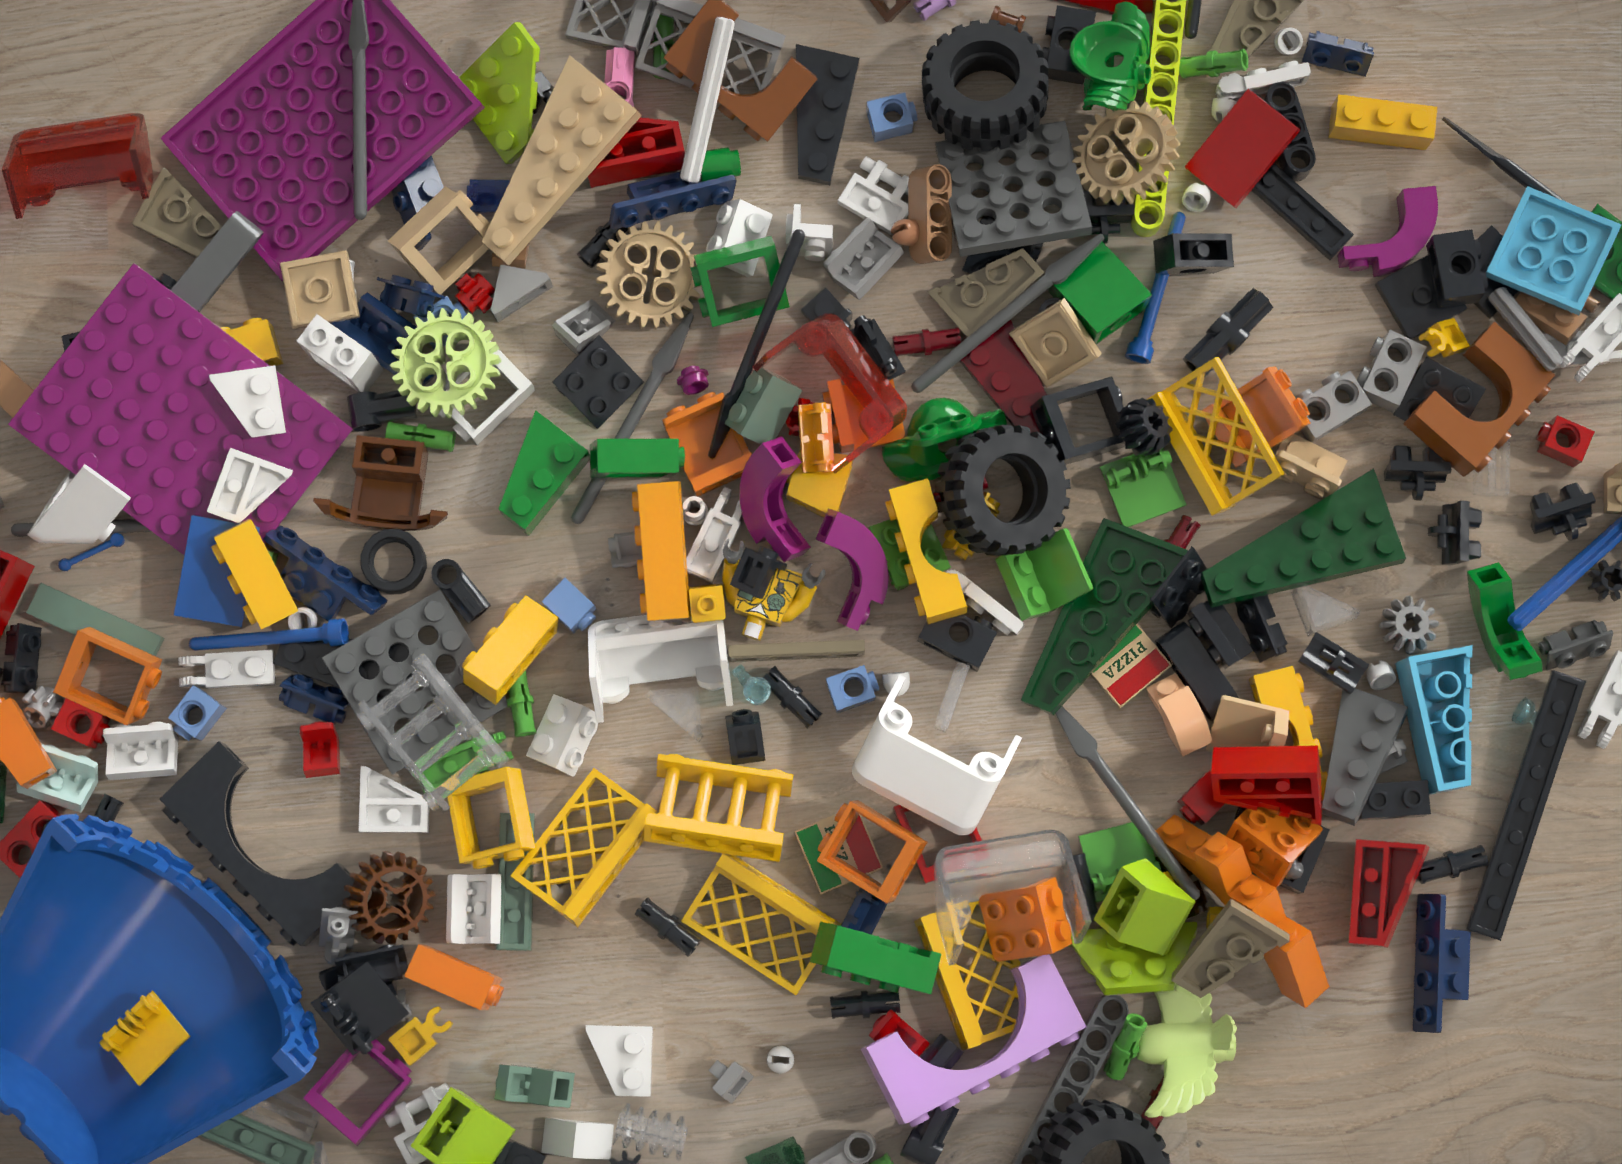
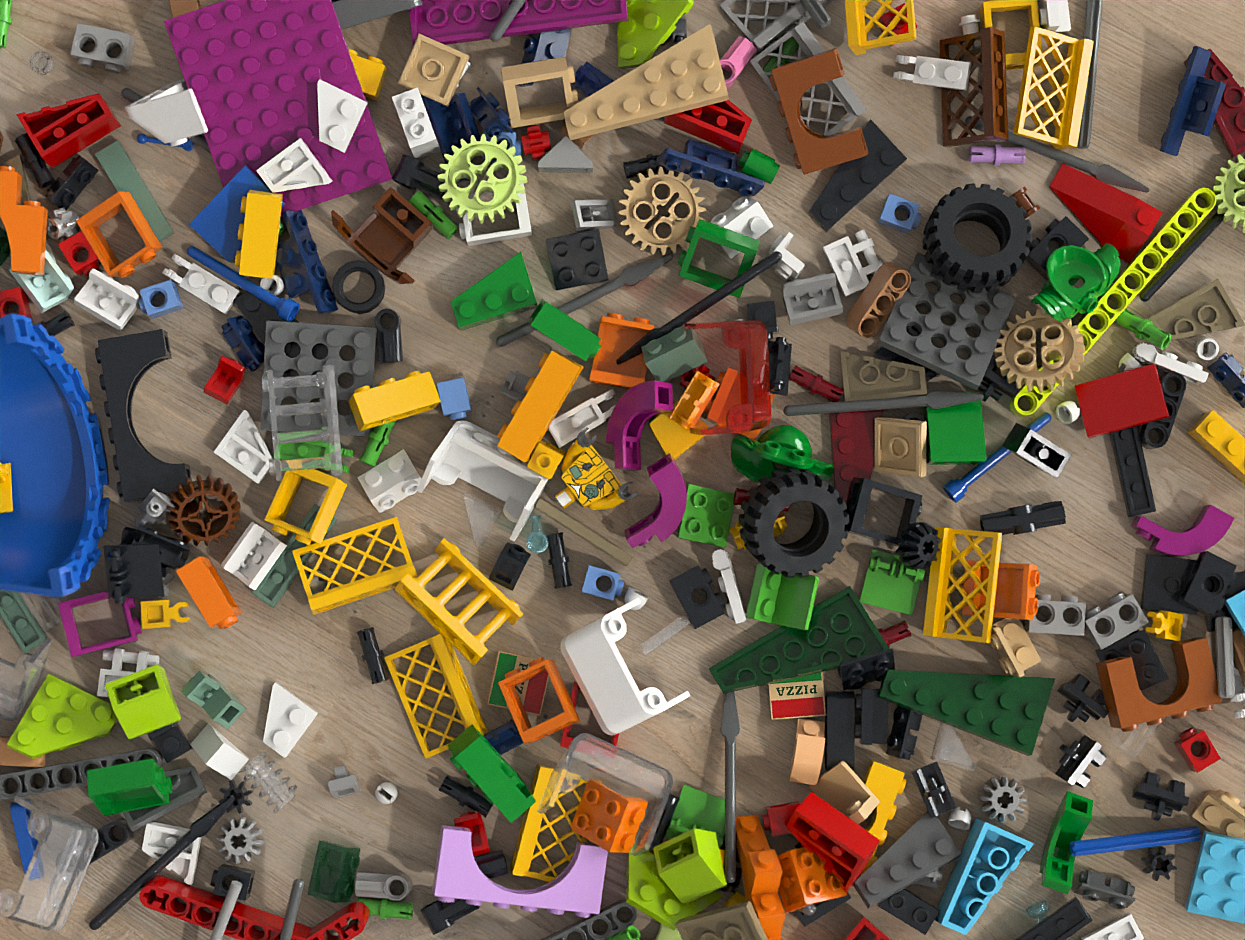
camera: 30 degrees right, 5 degrees up
(693, 380) = (641, 302): magenta plate -> none
(694, 518) = (581, 398): white pin -> none
(707, 99) = (781, 119): white axle -> none
(756, 571) = (592, 462): black bracket -> none
(905, 232) = (853, 301): nougat hinge -> none
(938, 591) = (725, 495): yellow arch -> none

